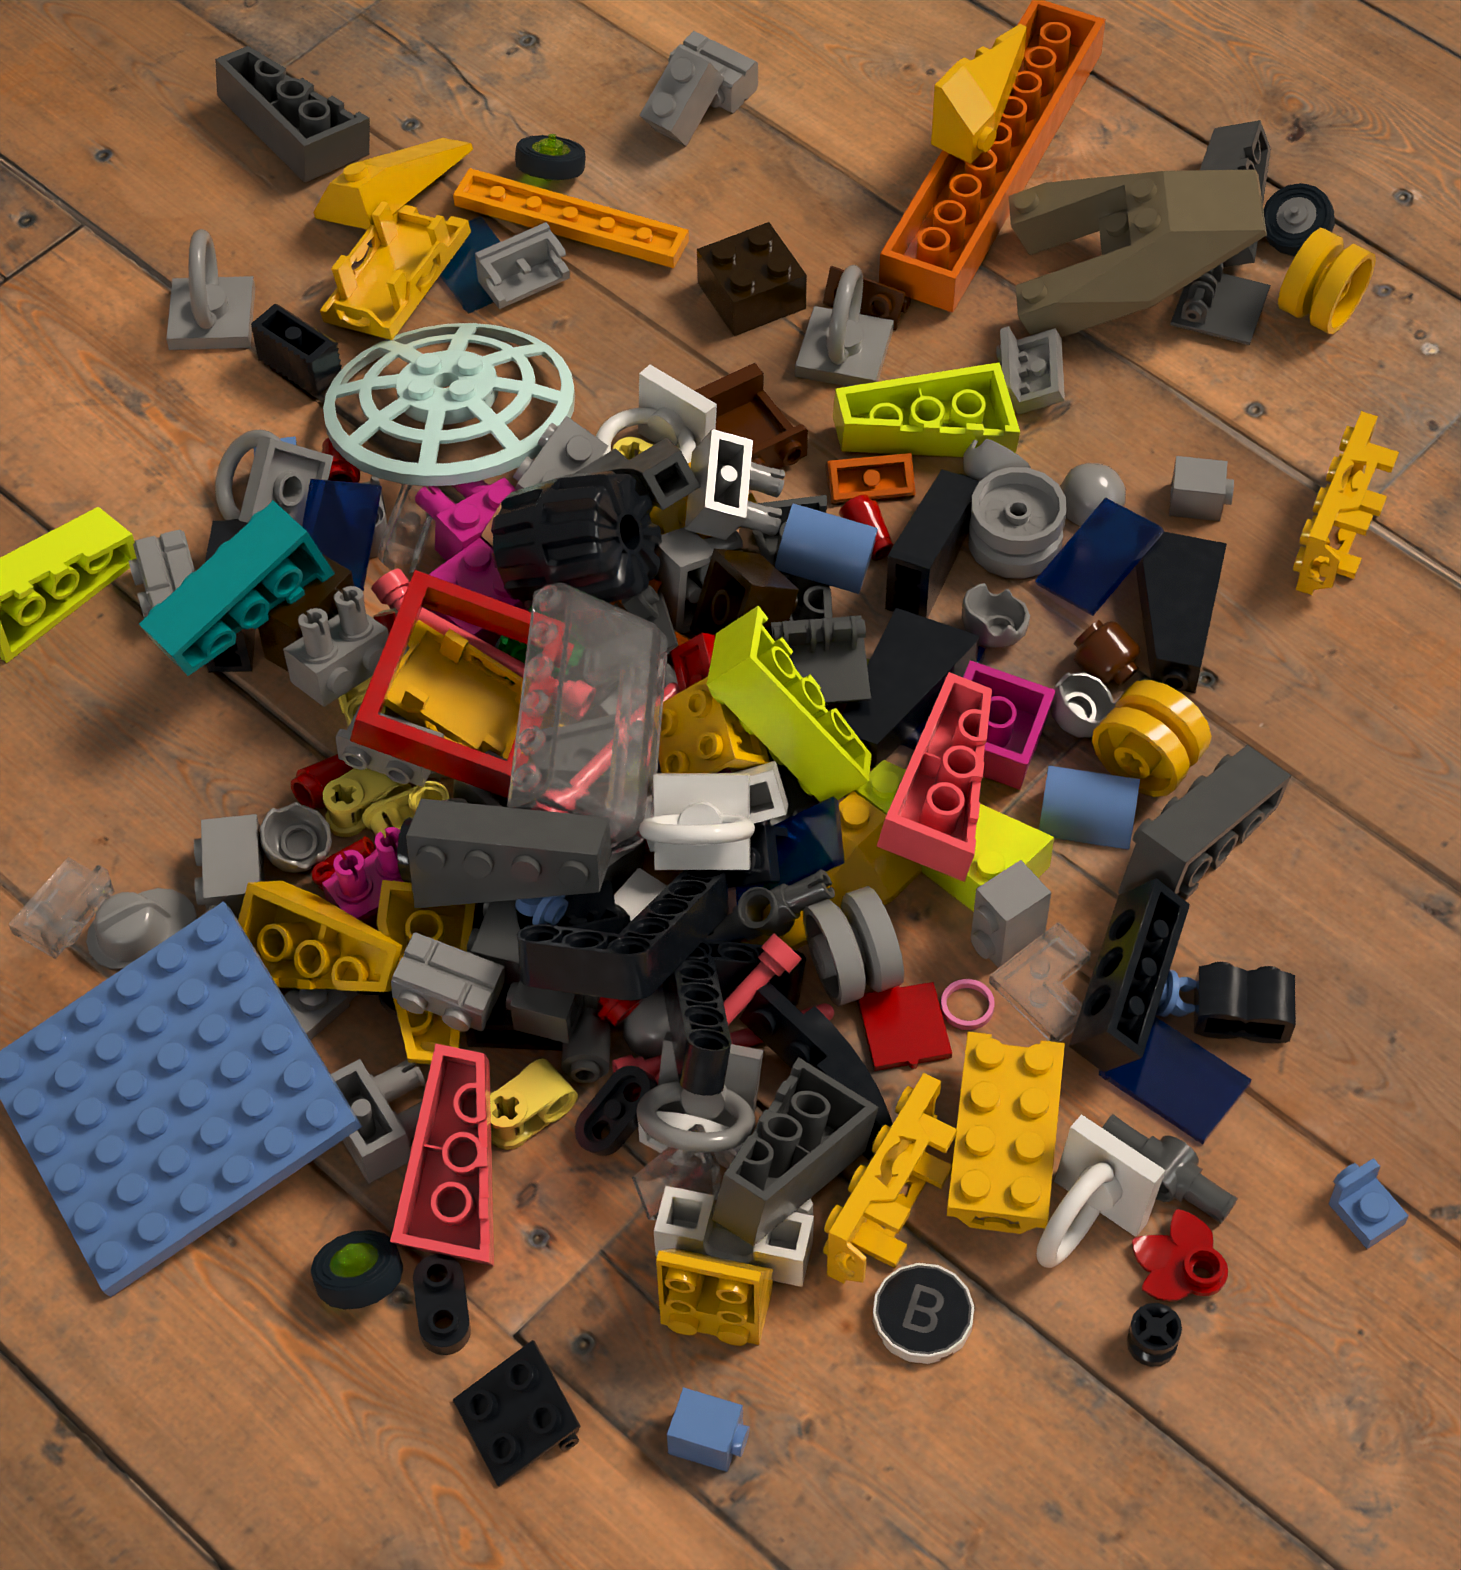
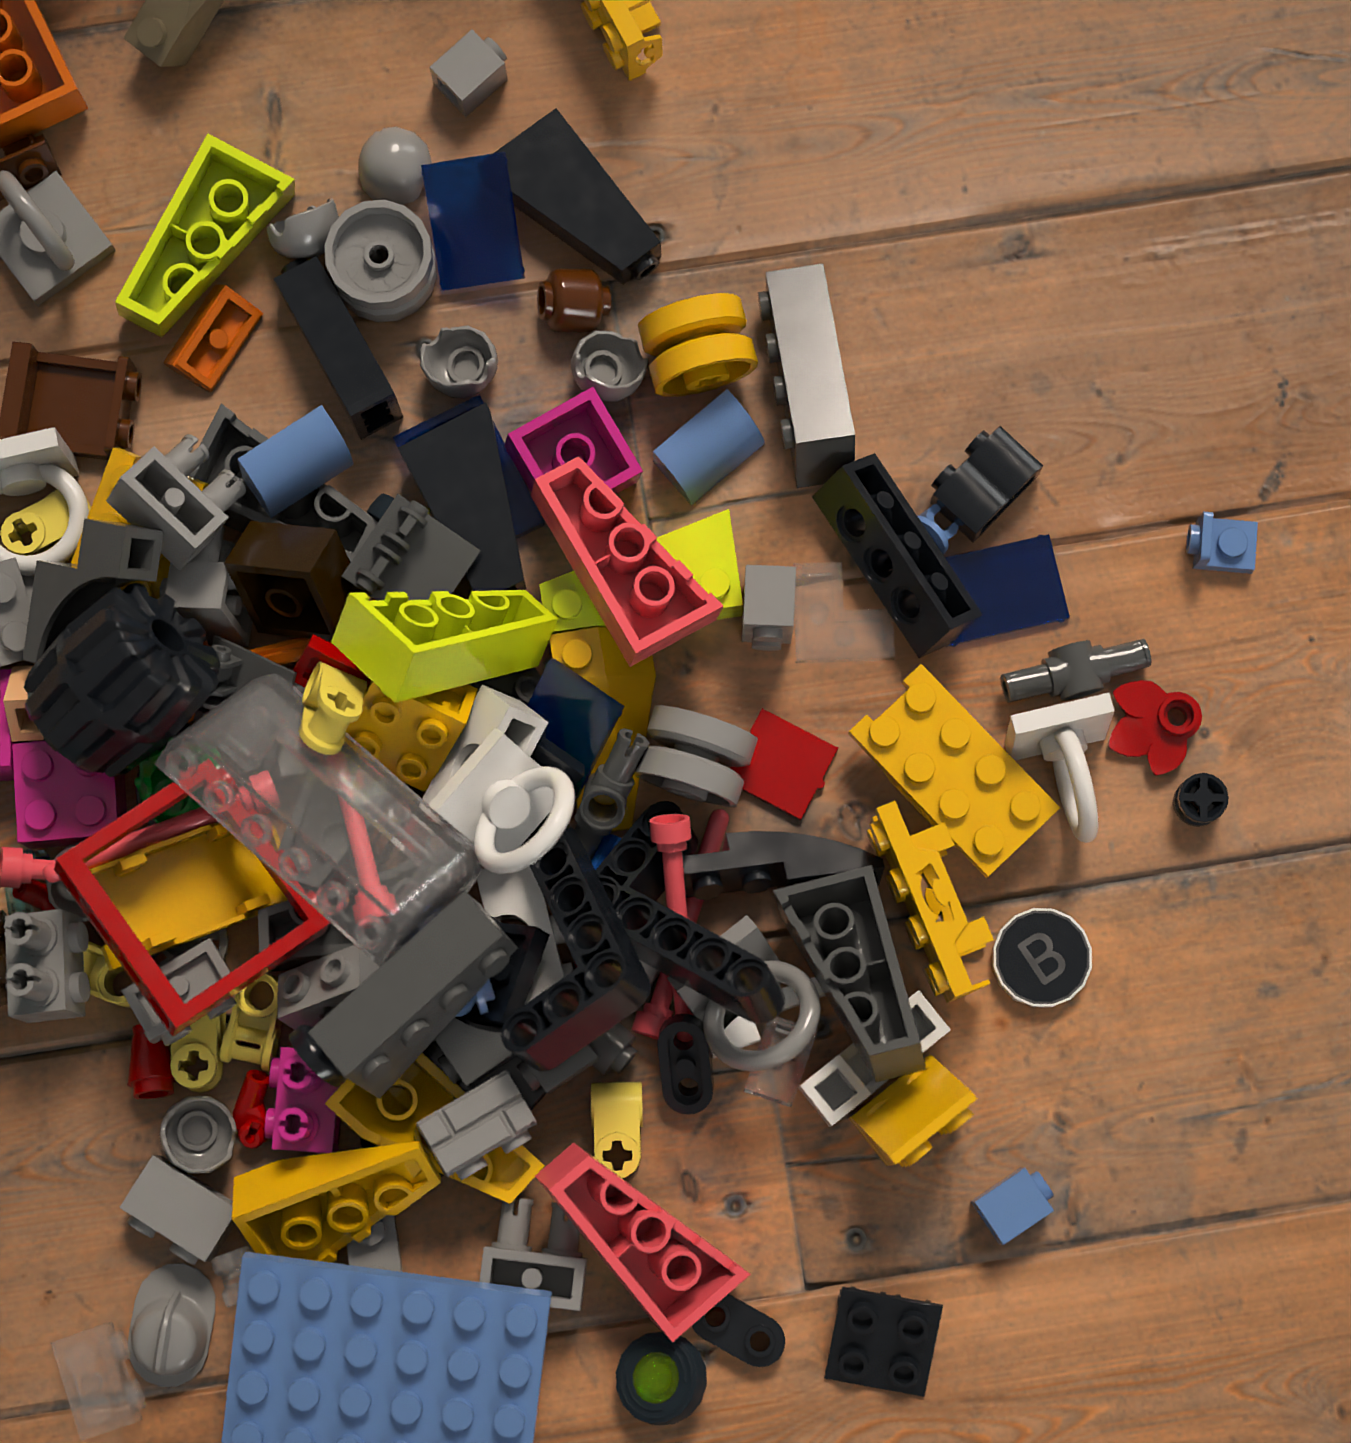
camera: 50 degrees left, 25 degrees up
(668, 668) = (330, 704): none -> light yellow piece
(868, 512) = (269, 387): red cone -> none
(972, 984) = (806, 673): bright pink piece -> none
(1032, 369) = (219, 98): light grey bracket -> none

